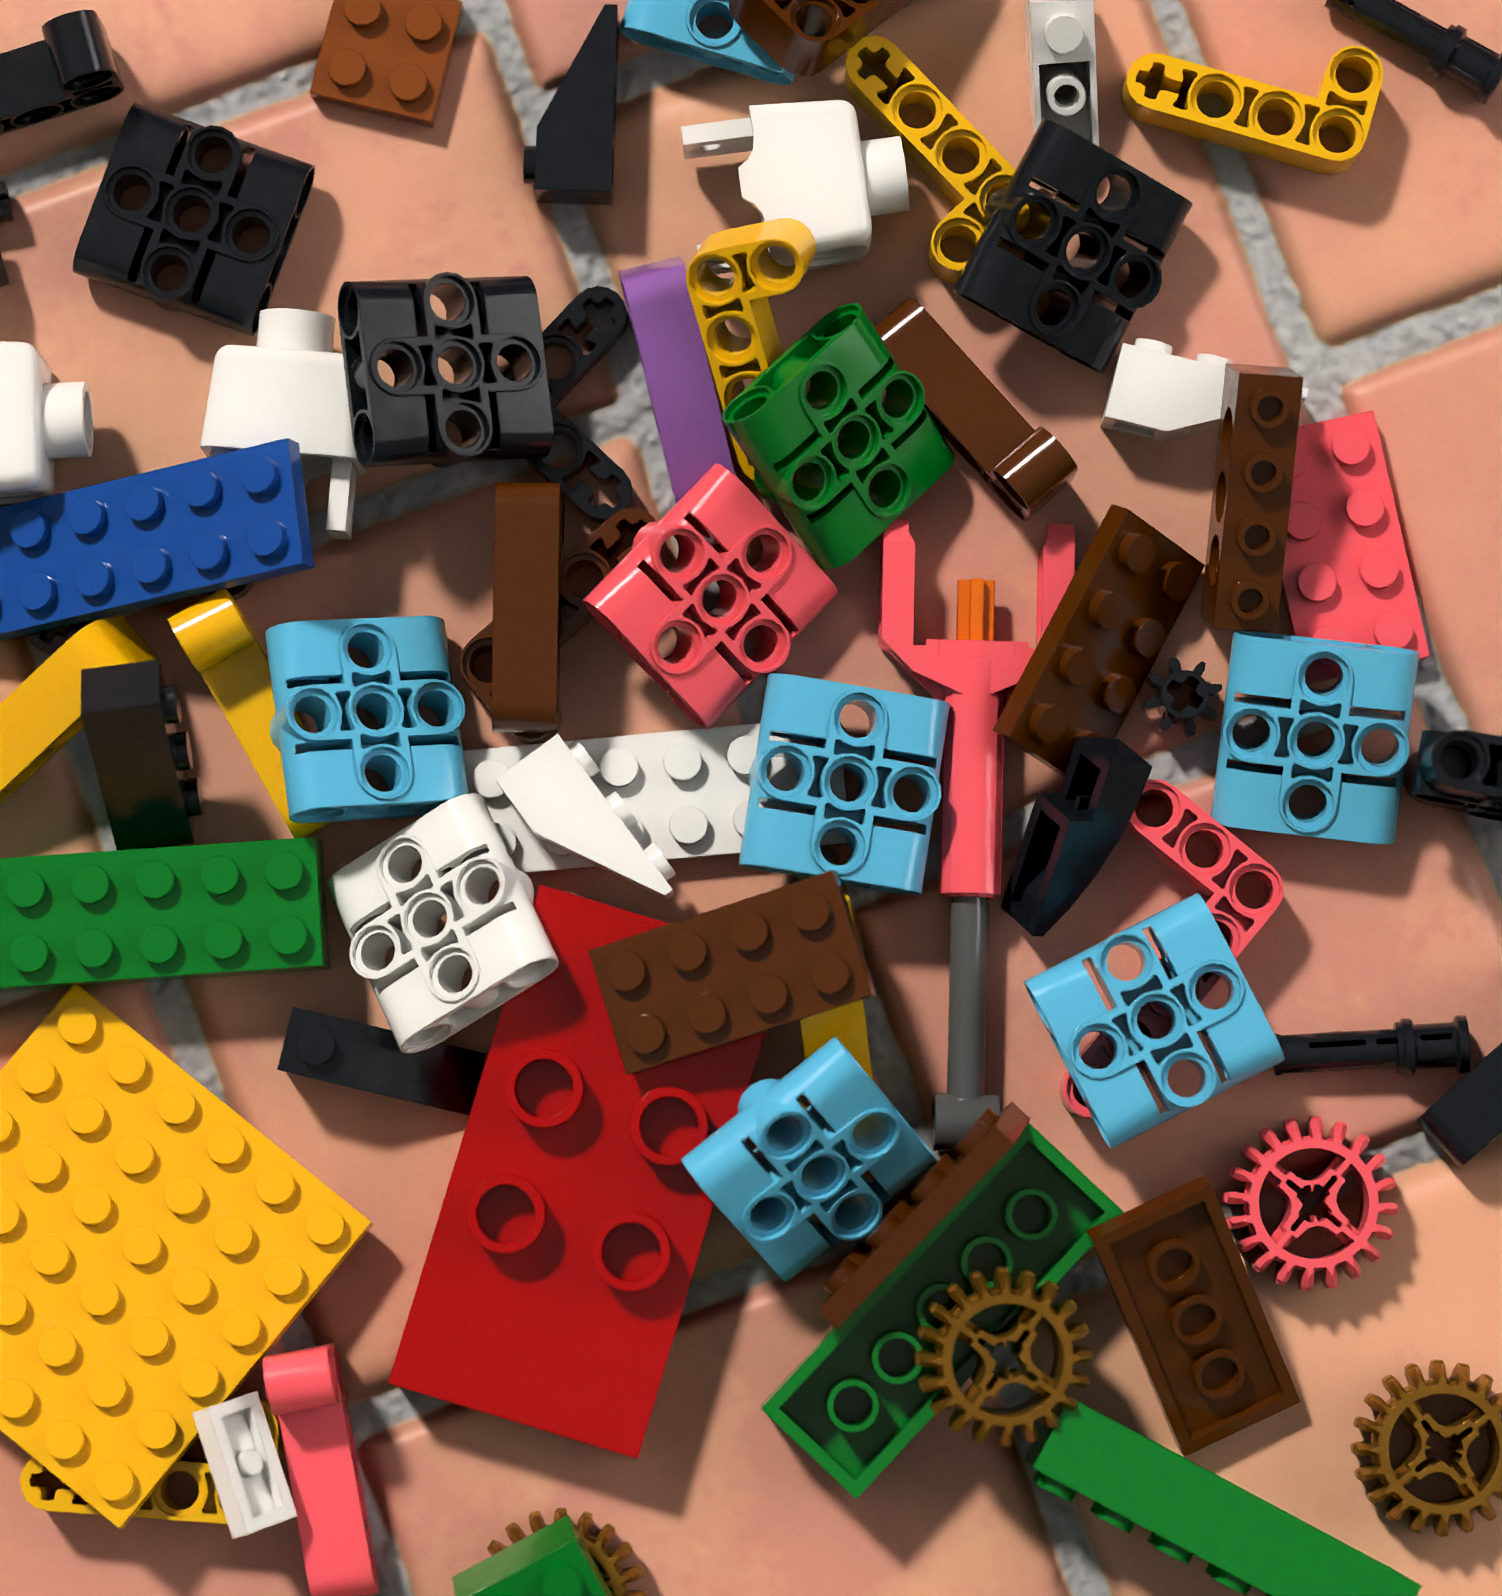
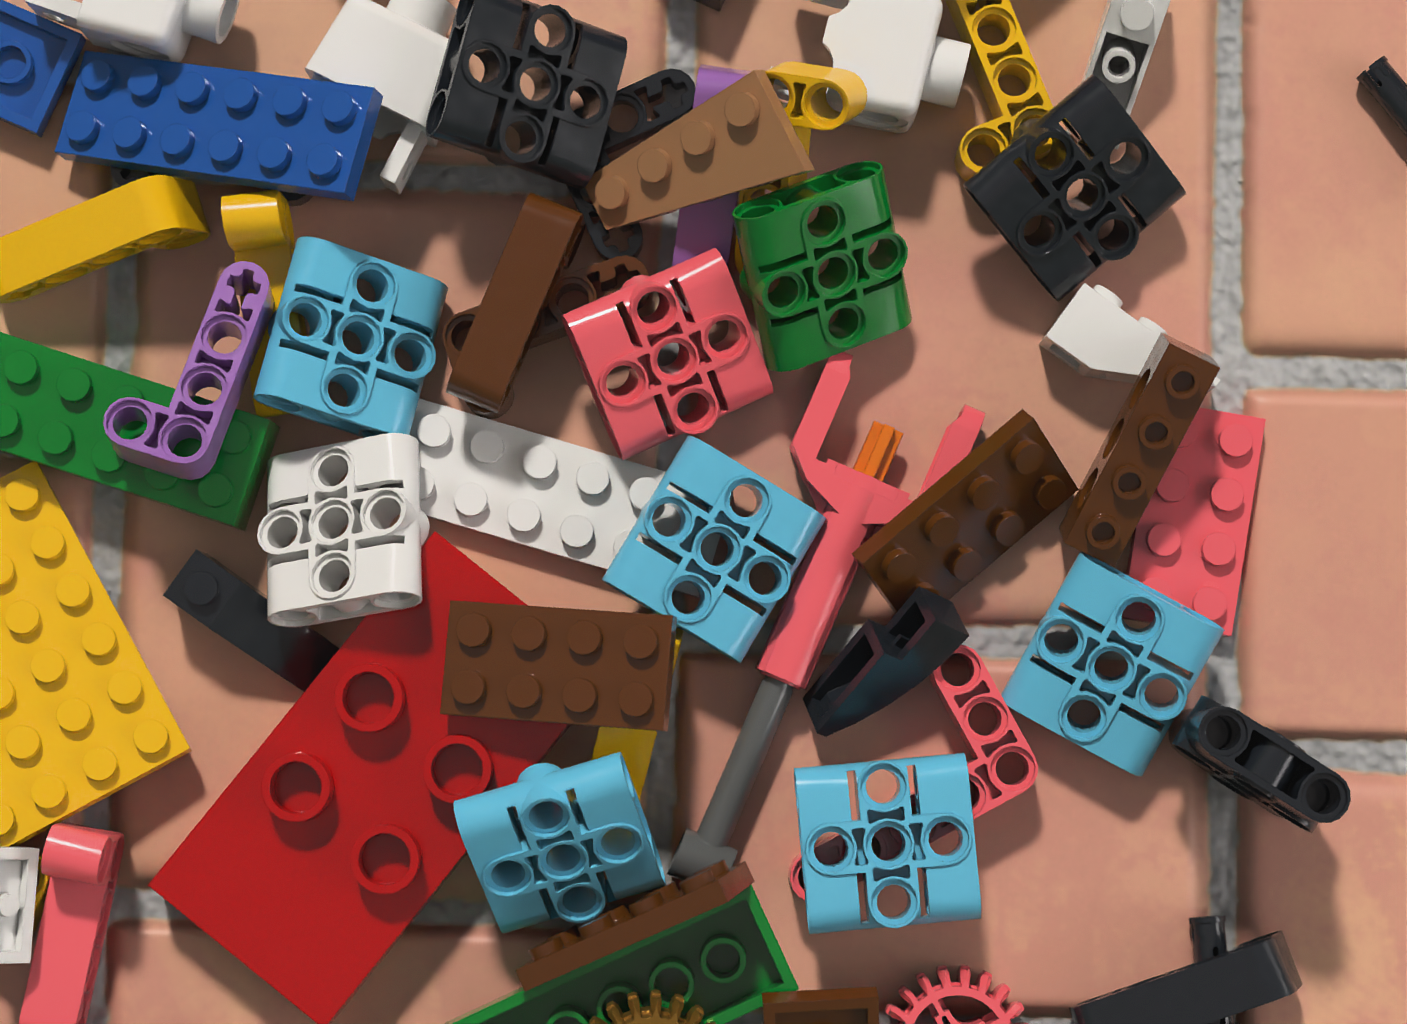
camera: 20 degrees right, 0 degrees up
(140, 755) = (154, 295): black brick -> none
(227, 810) = (202, 369): none -> medium lavender beam
(569, 811) = (481, 475): white slope -> none
(670, 365) = (713, 151): none -> medium nougat wing
(973, 415) = (957, 339): reddish brown beam -> none
(1199, 696) = (1031, 592): black gear -> none
(1248, 98) = (1265, 128): yellow beam -> none
(1404, 1047) = (1081, 944): black pin -> none

